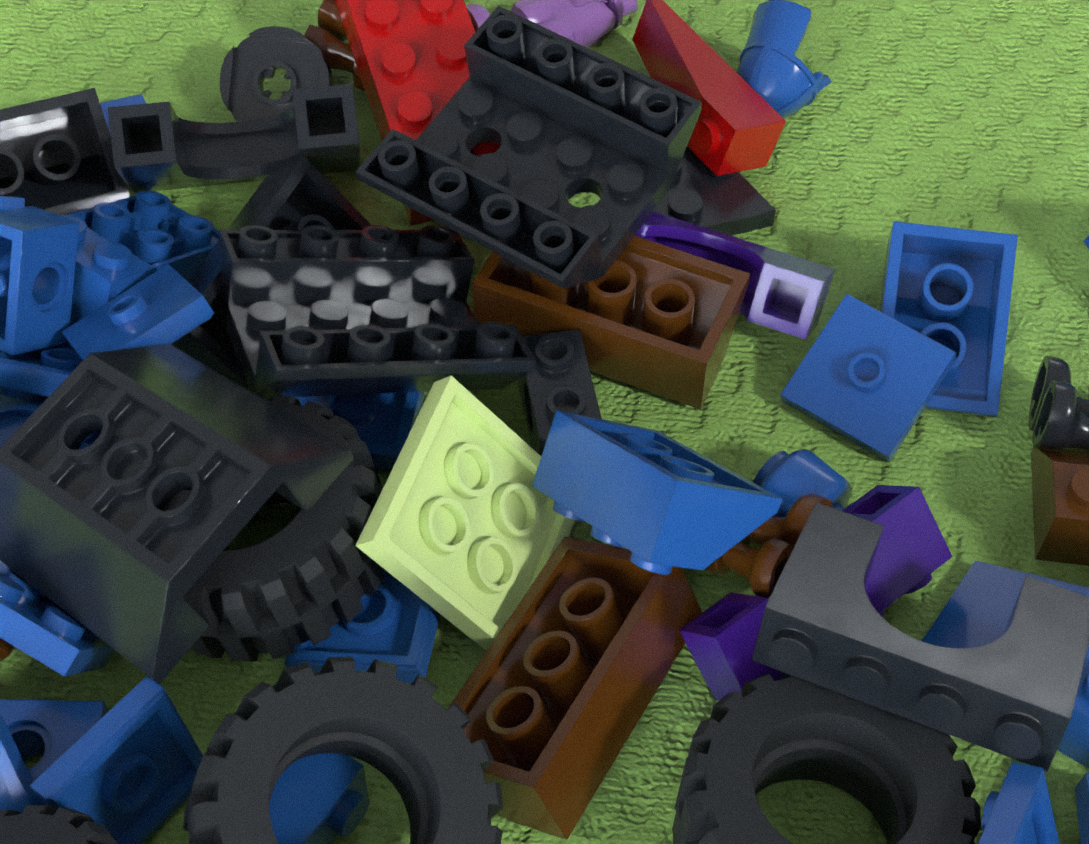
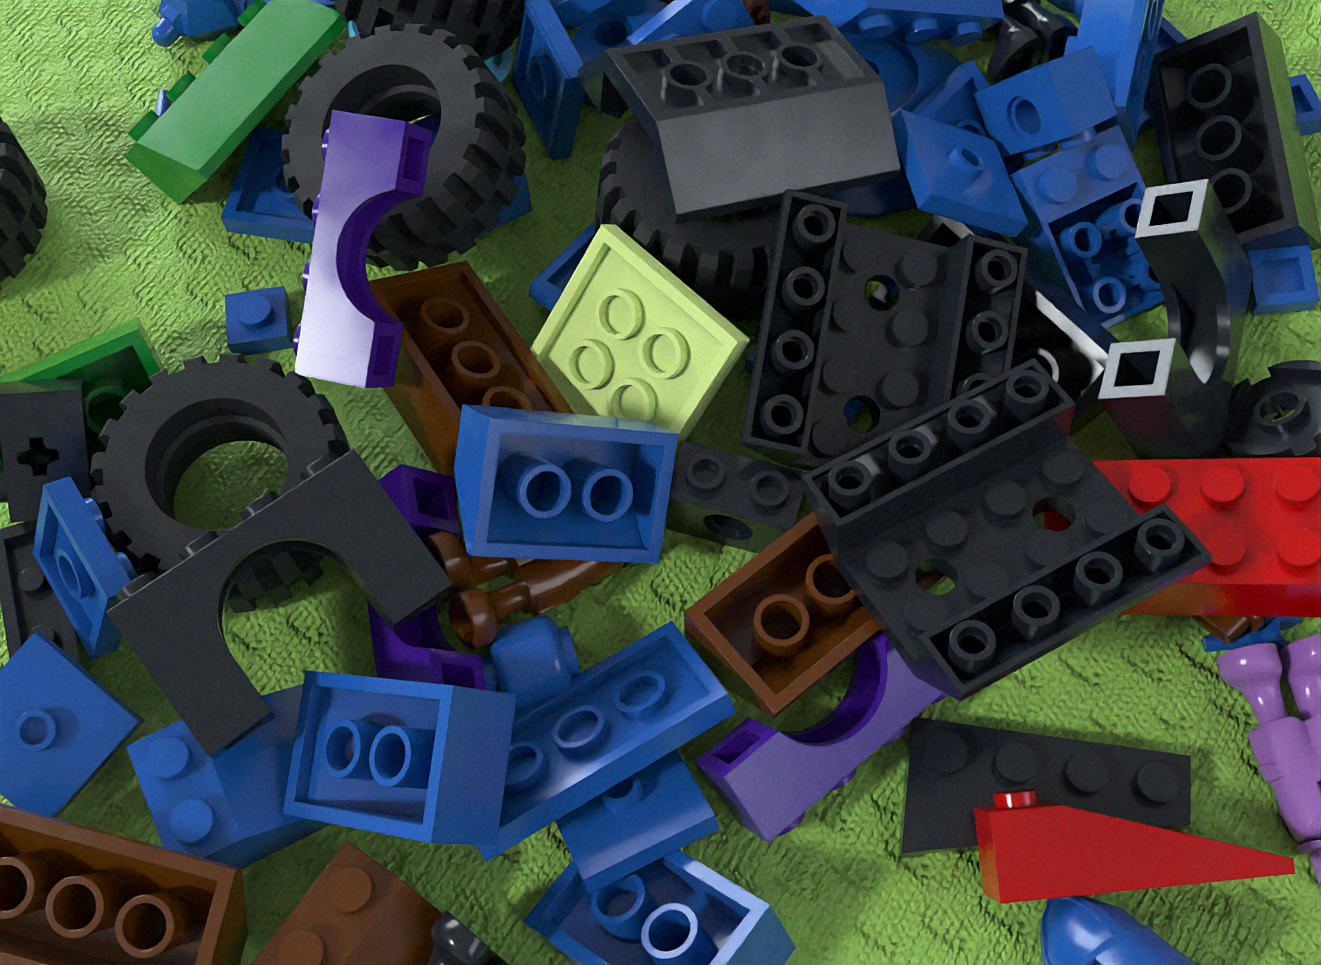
camera: 120 degrees right, 10 degrees up
(452, 735) = (366, 173): none -> dark purple arch
(845, 405) = (605, 730): none -> blue plate
(980, 485) = (401, 757): none -> blue slope

